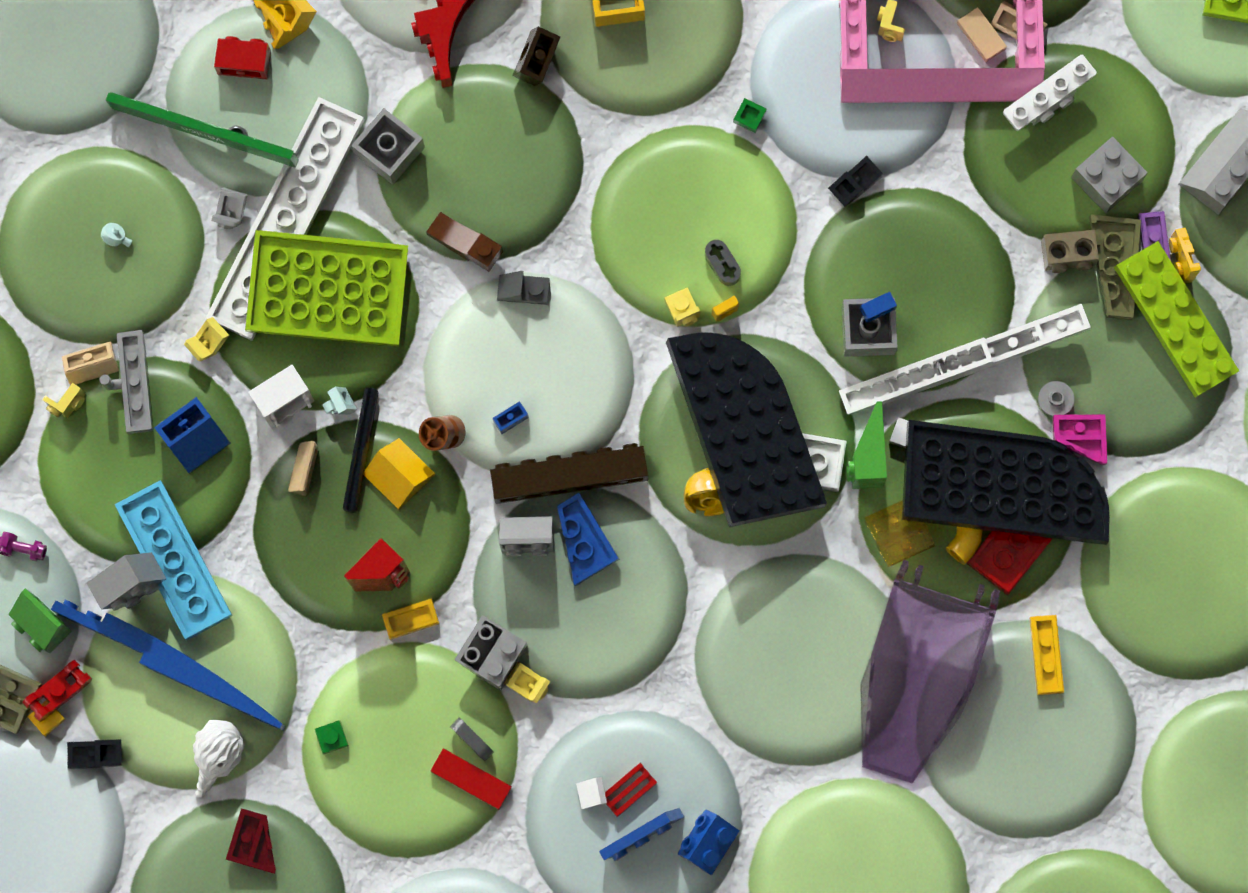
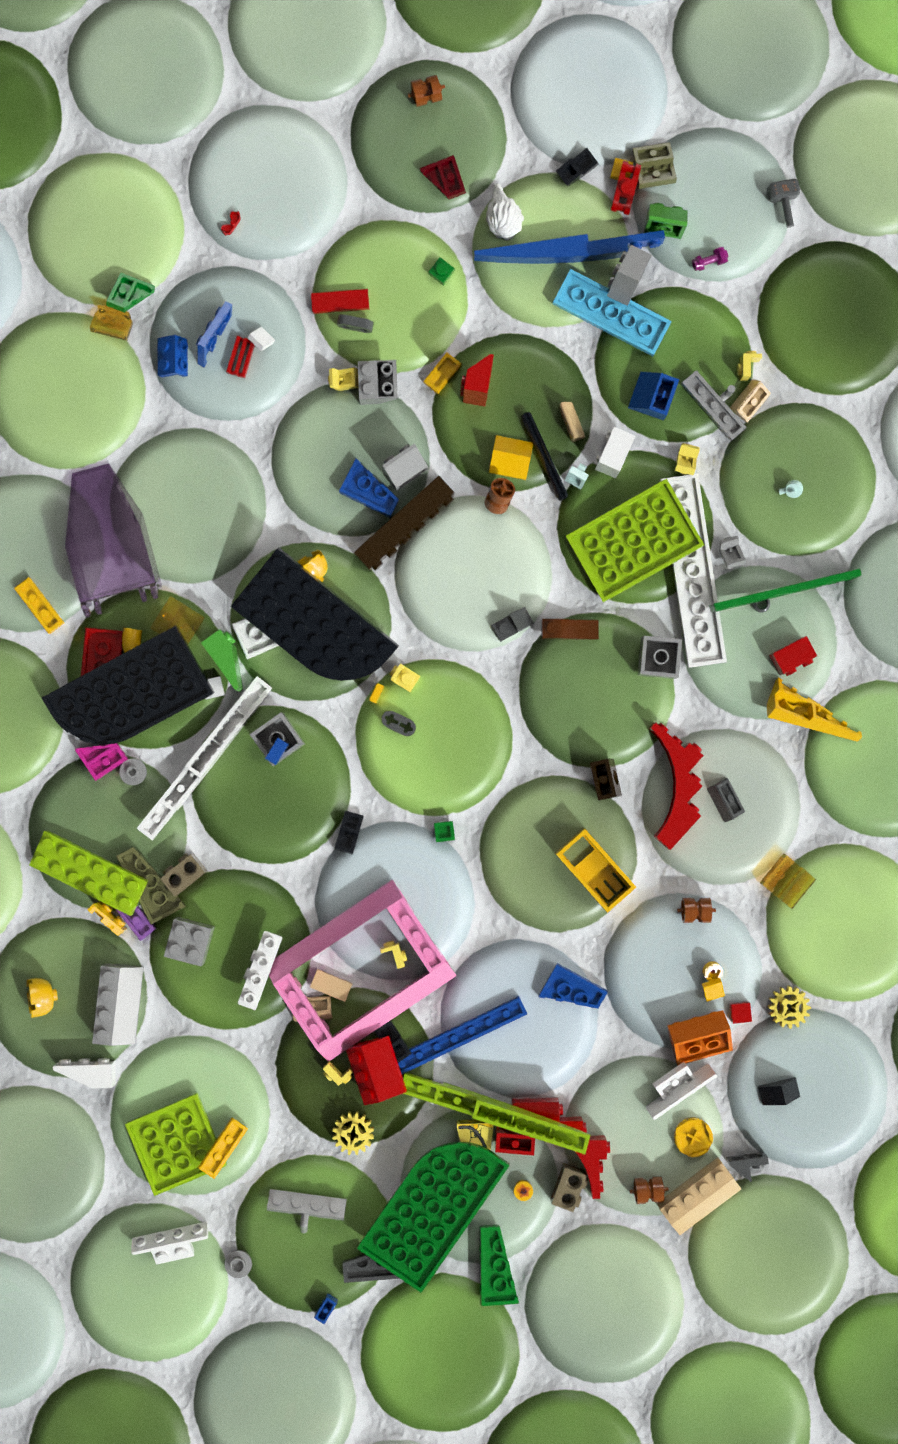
camera: 135 degrees right, 10 degrees up
(510, 417) = (465, 536): blue piece -> none

